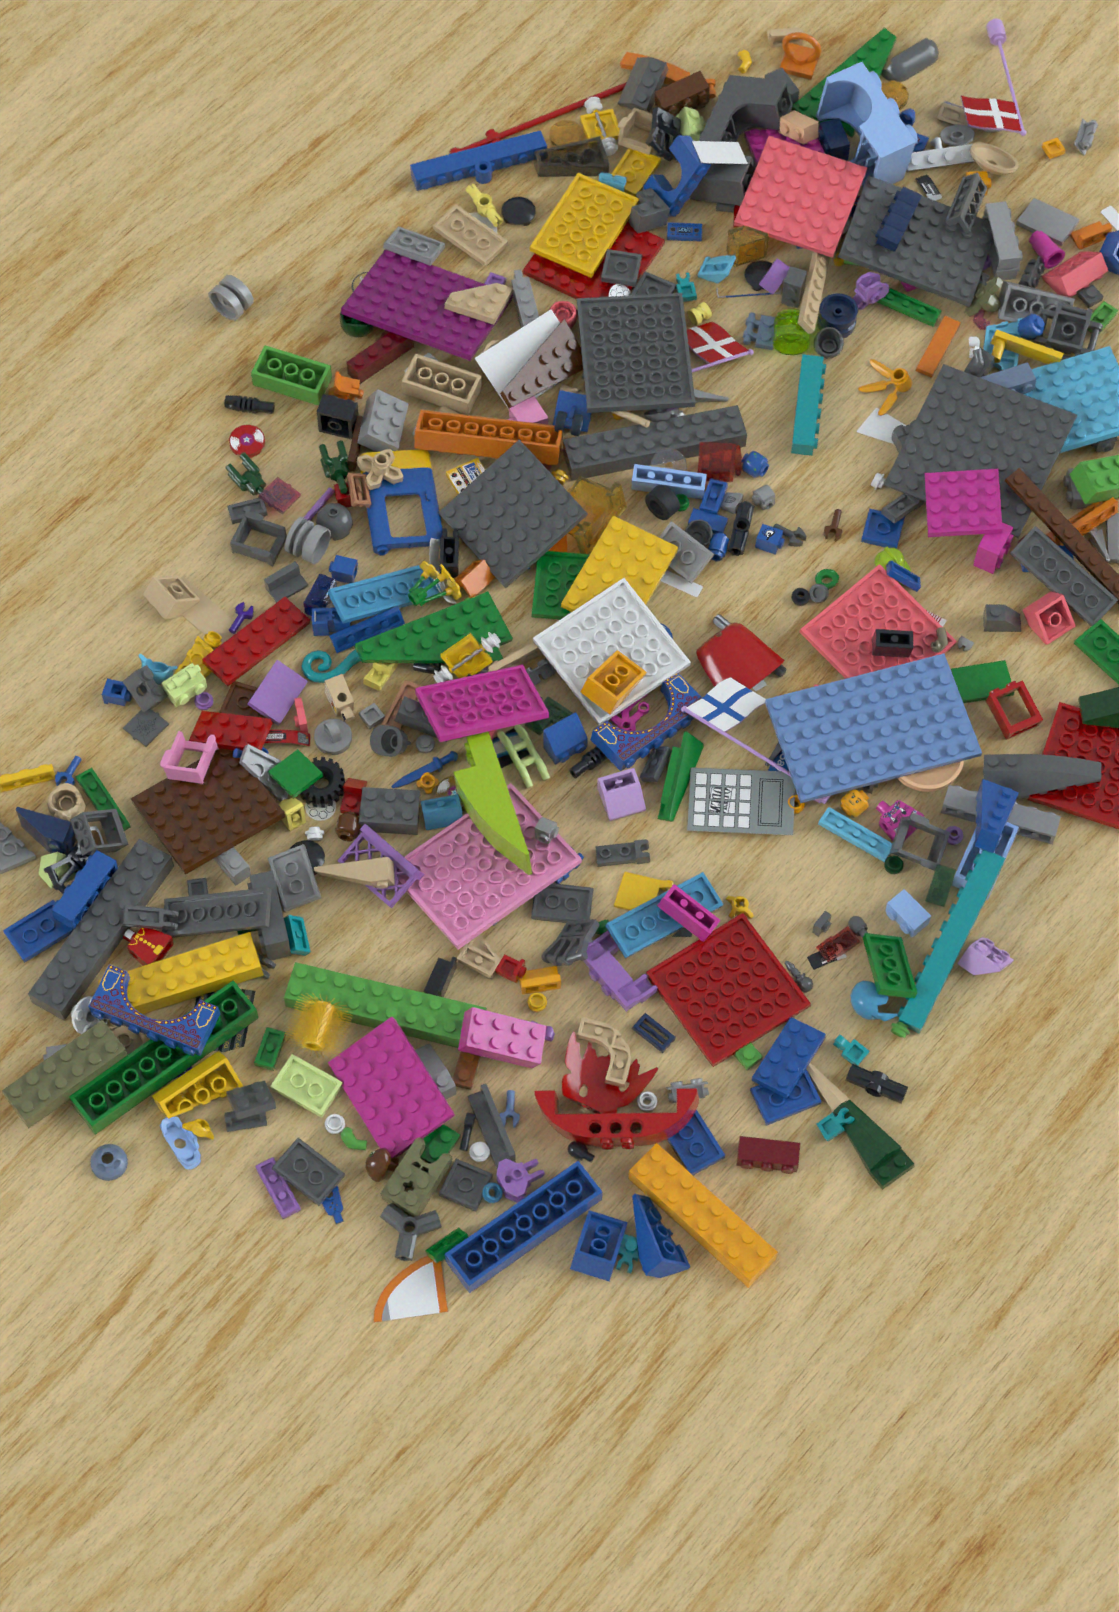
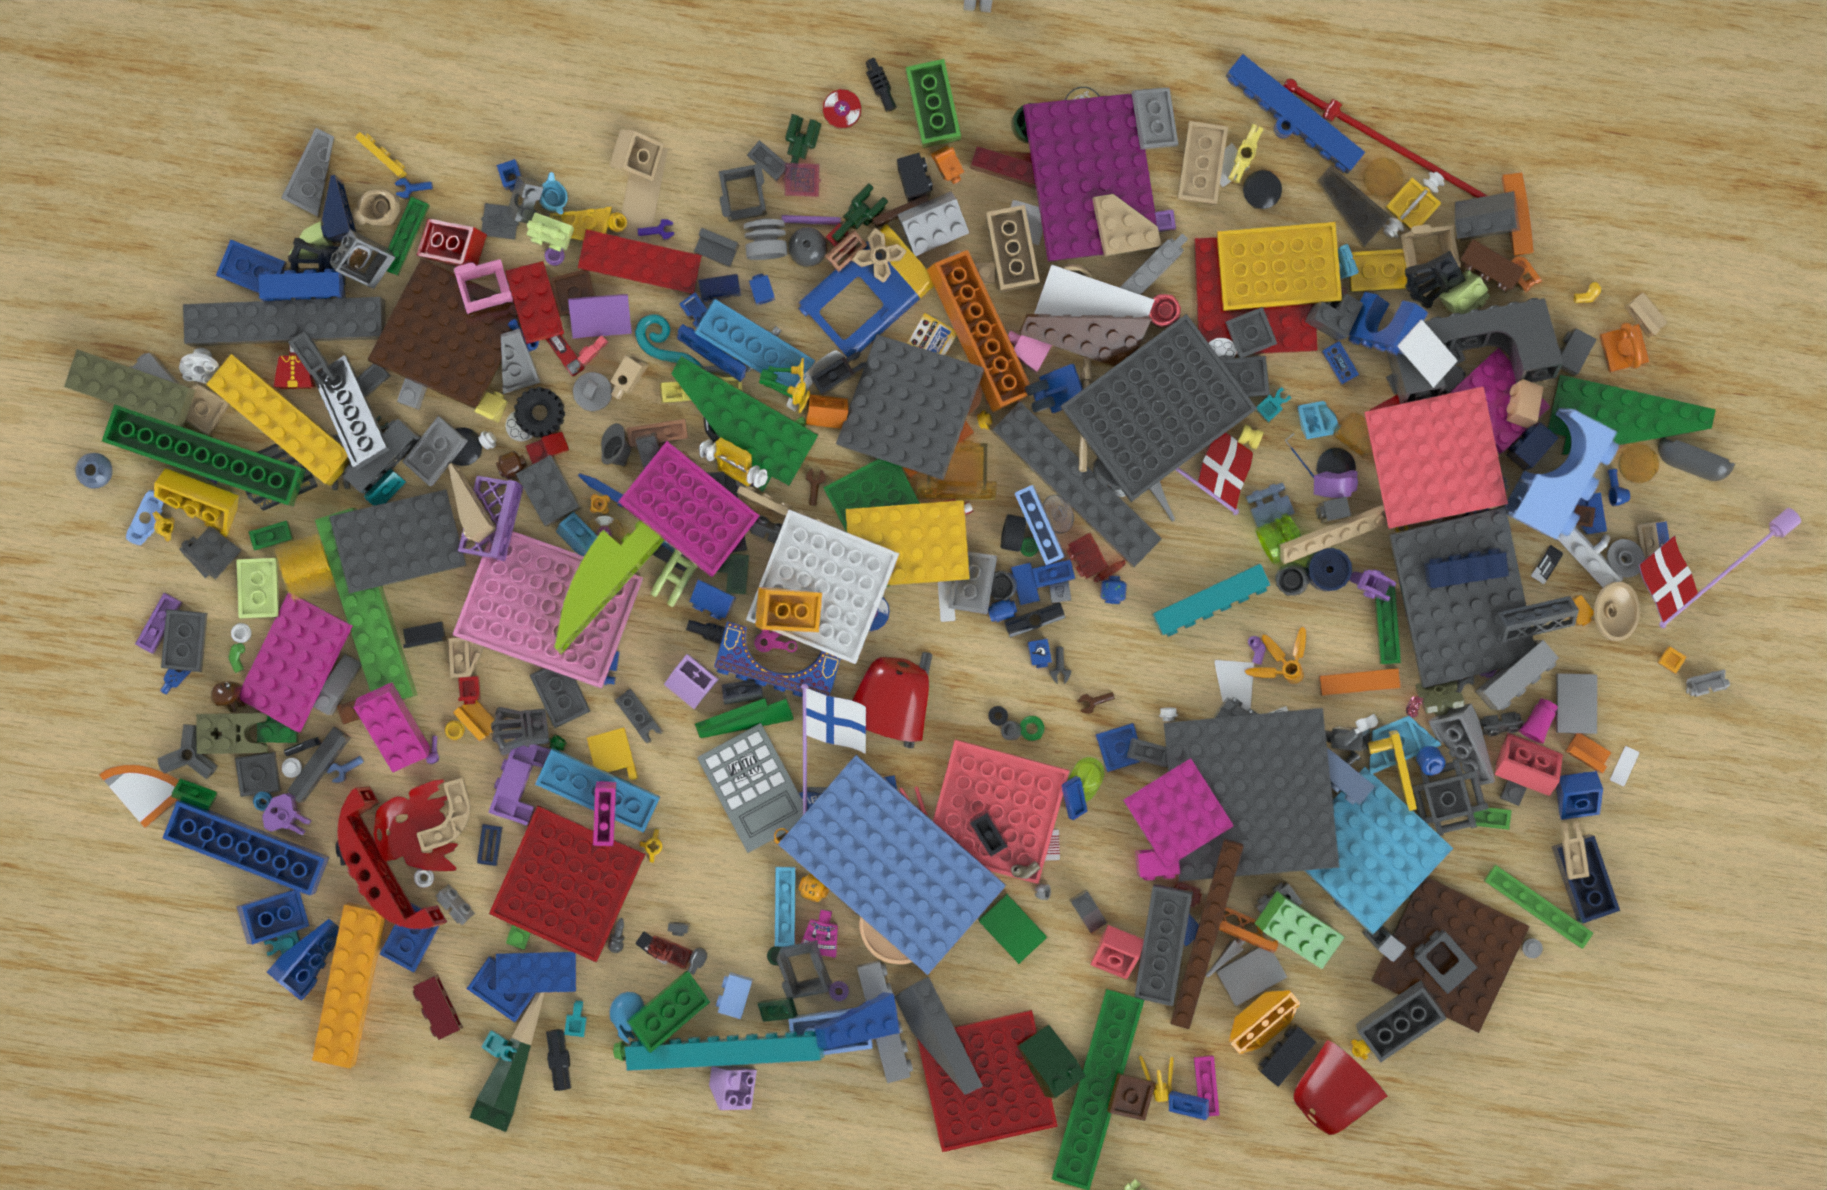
camera: 60 degrees right, 25 degrees up
(135, 768) = (451, 243): none -> red slope
(186, 1032) = (210, 387): arch -> none
(295, 773) = (525, 388): green tile -> none
(348, 945) = (397, 541): none -> dark grey plate
(372, 715) = (632, 413): light grey plate -> none
(425, 743) = (632, 474): light grey plate -> none
(524, 621) = (814, 486): none -> reddish brown bar
(546, 830) = (607, 641): light grey plate -> none
(764, 497) = (1082, 620): light grey plate -> none
(867, 396) = (1258, 647): none -> medium lavender arm
(1000, 717) = (985, 990): red window -> none

